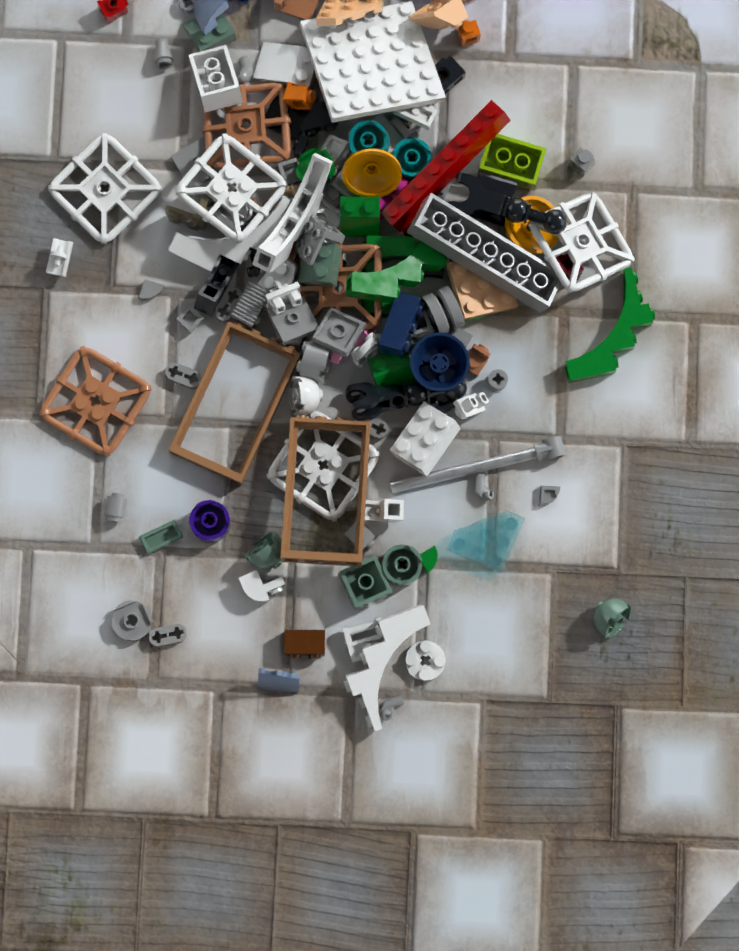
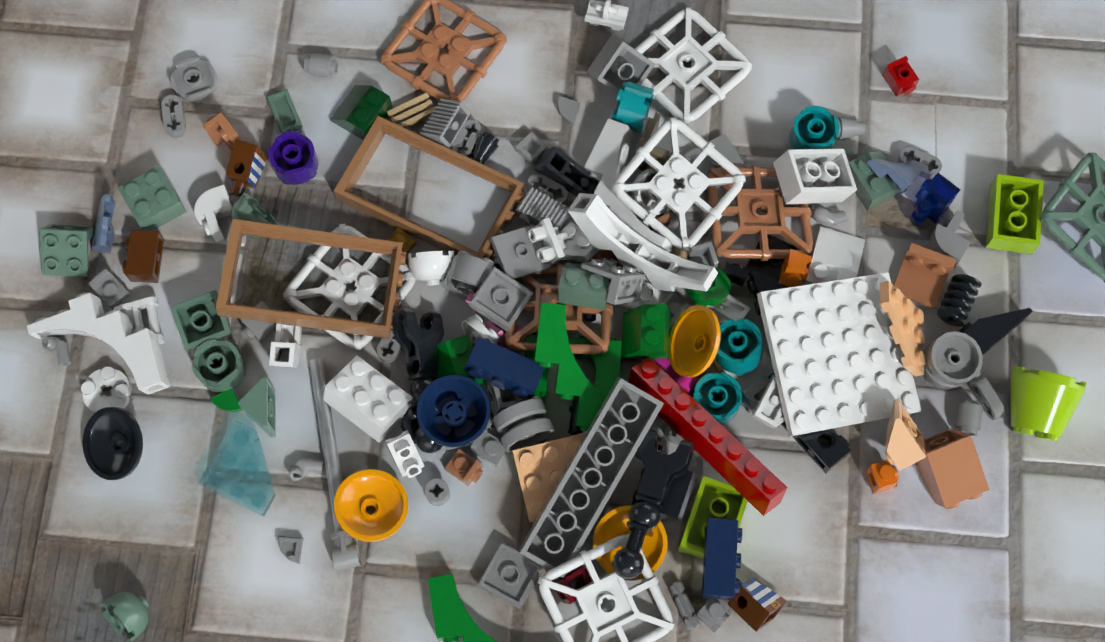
camera: 100 degrees right, 10 degrees down
(113, 243) = (620, 64): none -> light grey slope
(149, 410) = (413, 107): none -> tan tile
(152, 231) = (633, 105): none -> teal brick
(158, 468) = (361, 109): none -> dark green slope
(166, 90) = (814, 129): none -> teal brick
(171, 393) = (445, 122): none -> light grey brick
(192, 359) = (485, 147): none -> black cone
(192, 578) = (221, 131): none -> nougat bracket
(212, 560) = (245, 166): none -> reddish brown torso
(252, 641) = (151, 199): none -> sand green brick
(280, 427) = (400, 236): none -> pearl gold plate
(299, 711) = (65, 250): none -> sand green bracket
(334, 670) = (108, 288): none -> light grey bracket
(437, 525) = (260, 406): none -> sand green slope
(481, 650) = (112, 443): none -> black dish
(512, 417) = (373, 490): none -> light orange dish
(547, 152) = (721, 559): none -> dark blue brick
(561, 319) = (510, 575): none -> light grey plate
(574, 130) = (756, 603): none -> reddish brown torso
(576, 185) = (684, 605): none -> light grey axle

